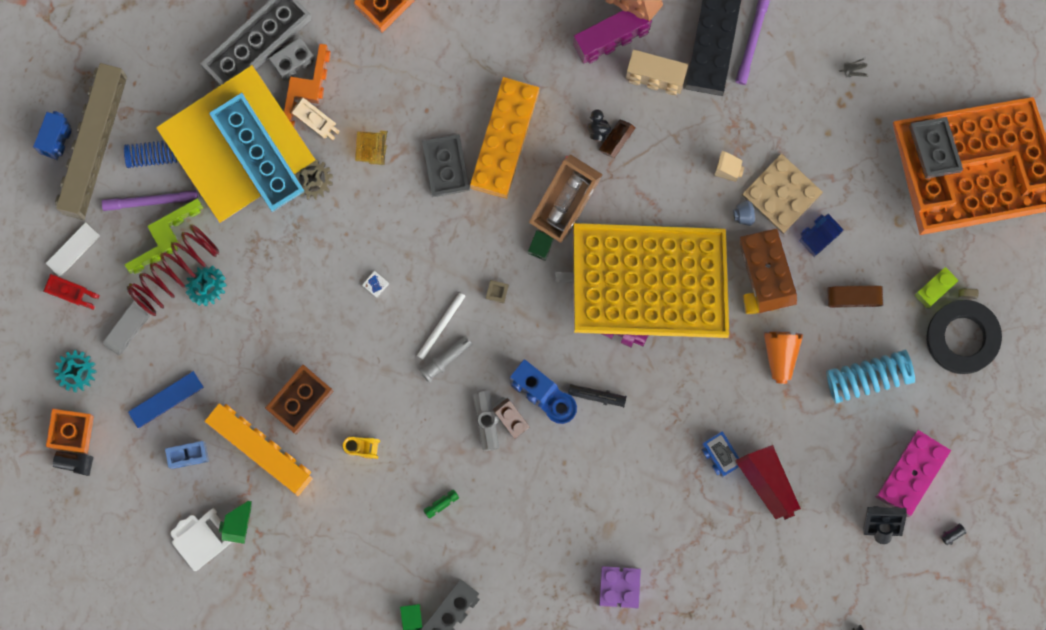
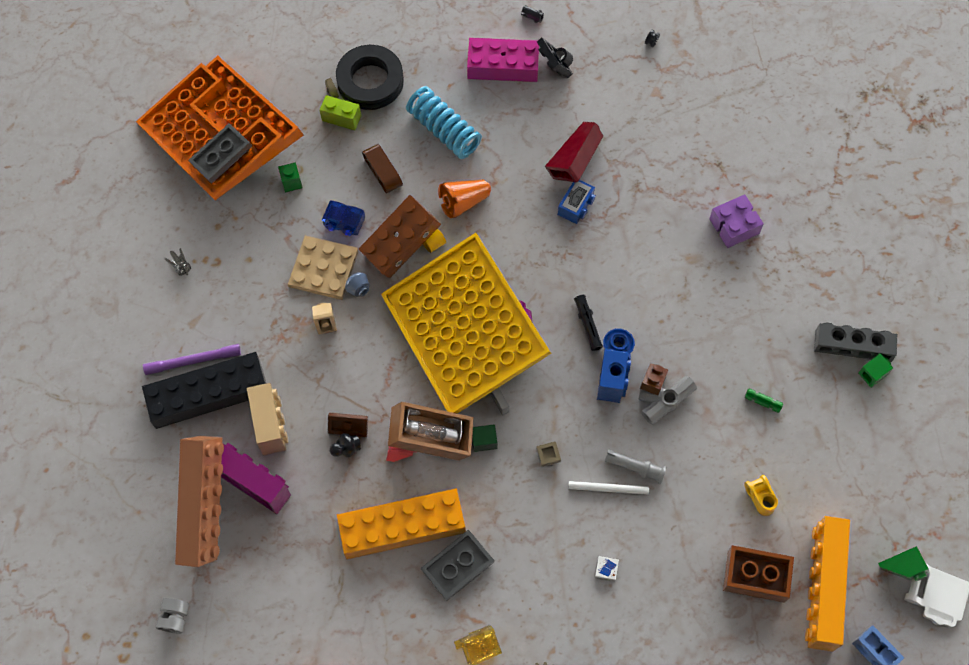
camera: 120 degrees left, 15 degrees down
(890, 207) = (290, 177): none -> green brick

